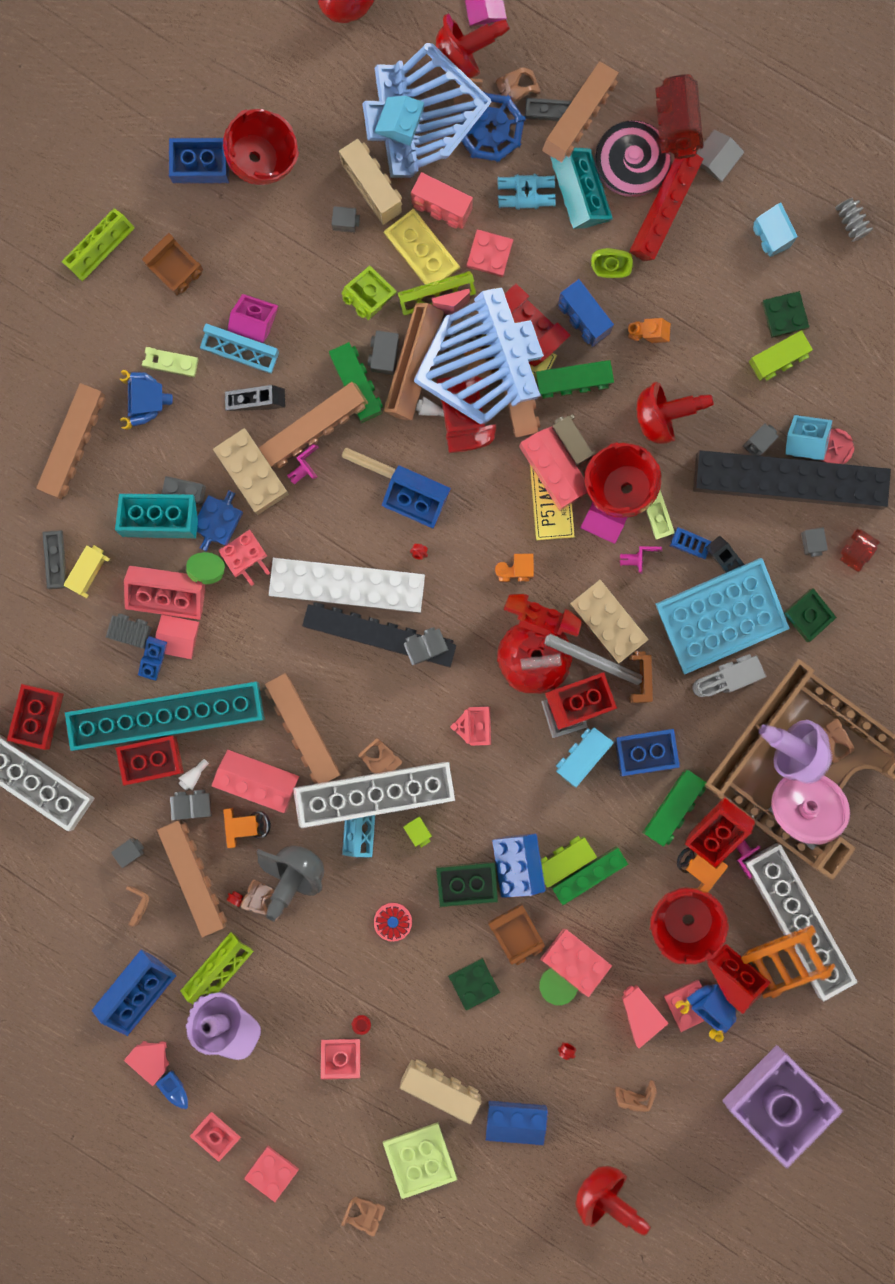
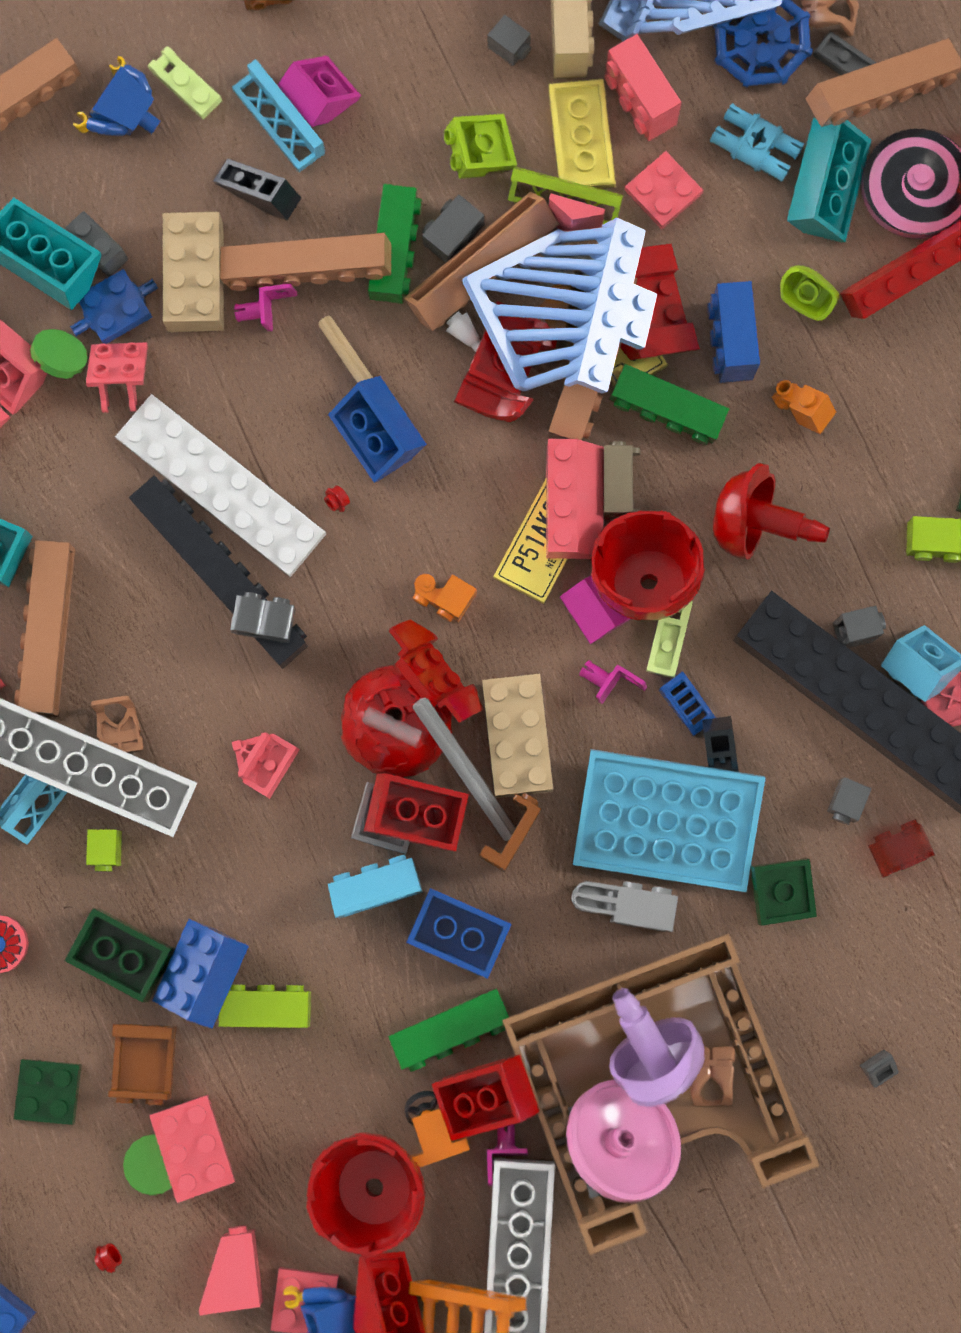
camera: 35 degrees right, 5 degrees down
(589, 875) = (283, 1046): green brick -> none

